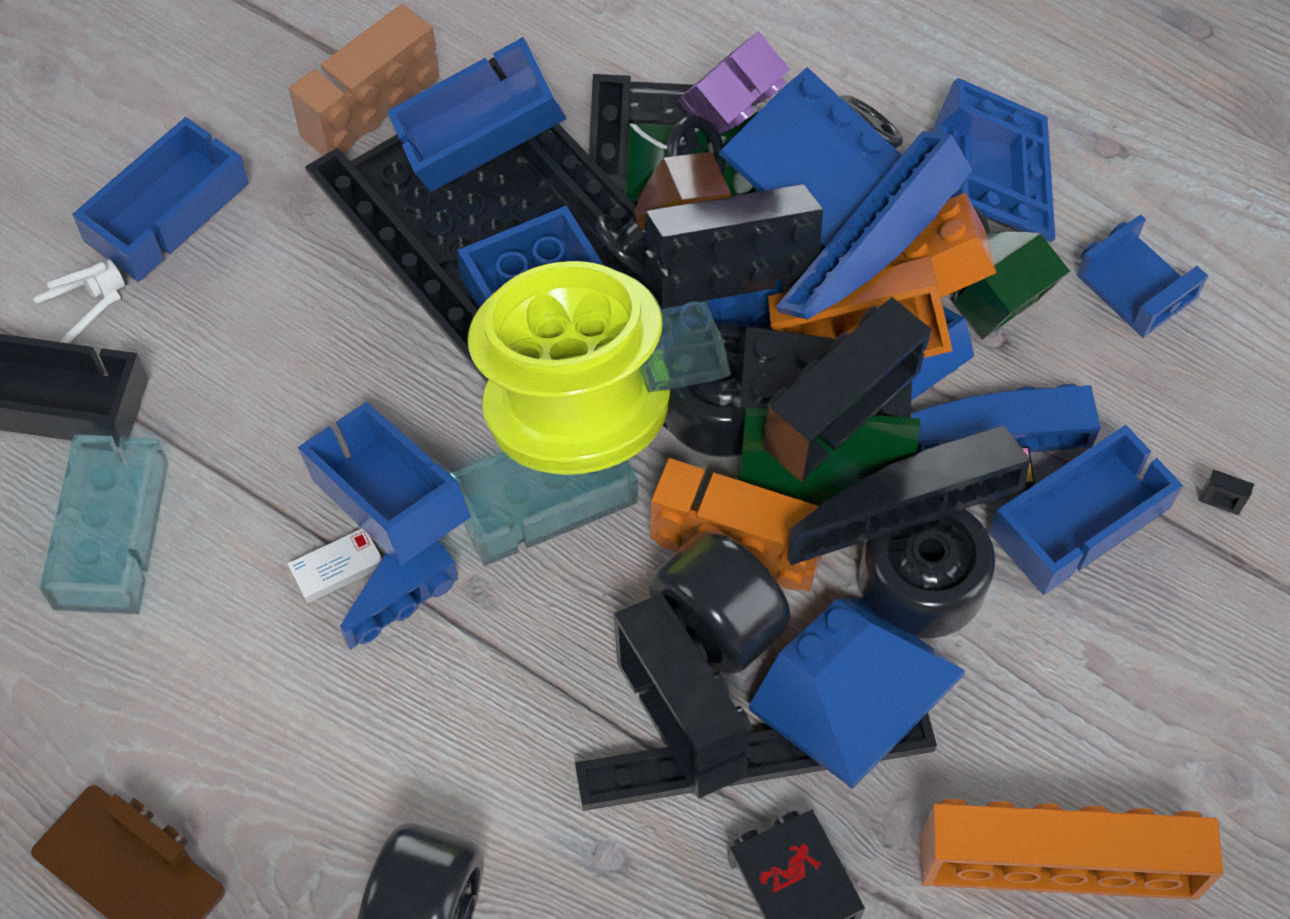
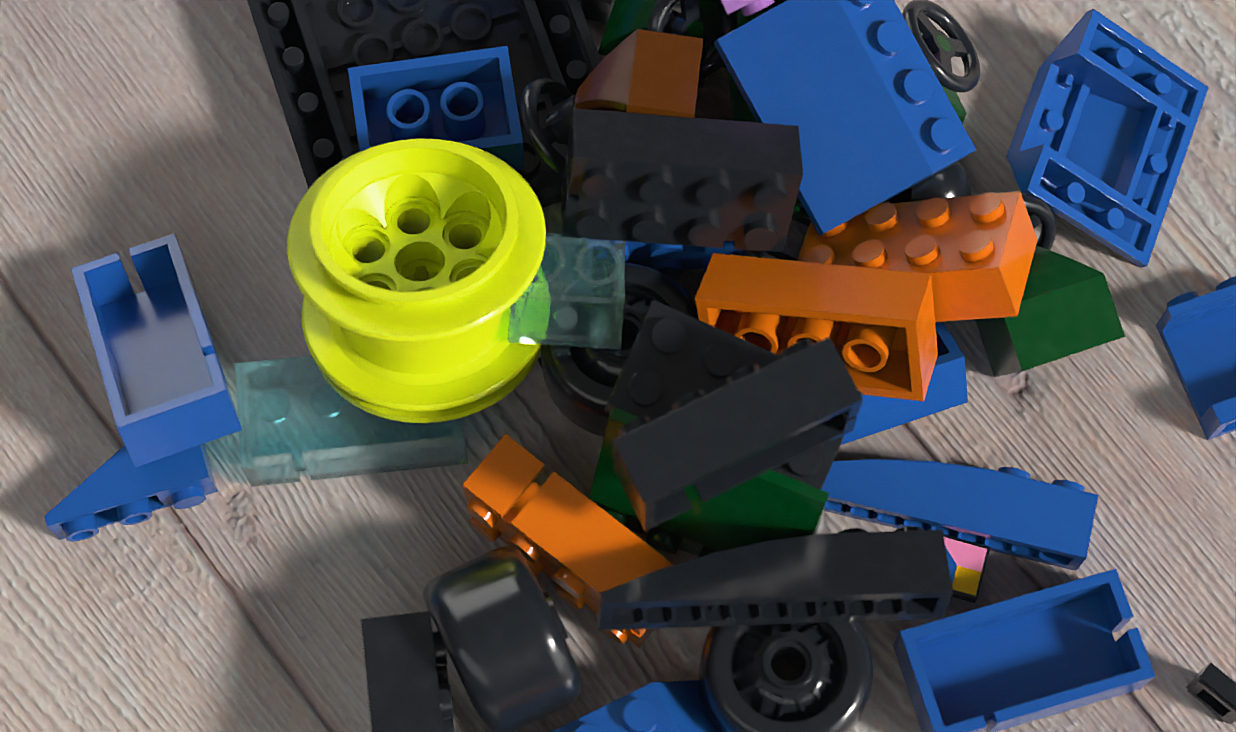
camera: 20 degrees right, 10 degrees up
(335, 565) = (68, 429): white tile -> none
(882, 224) = (883, 210): blue slope -> none

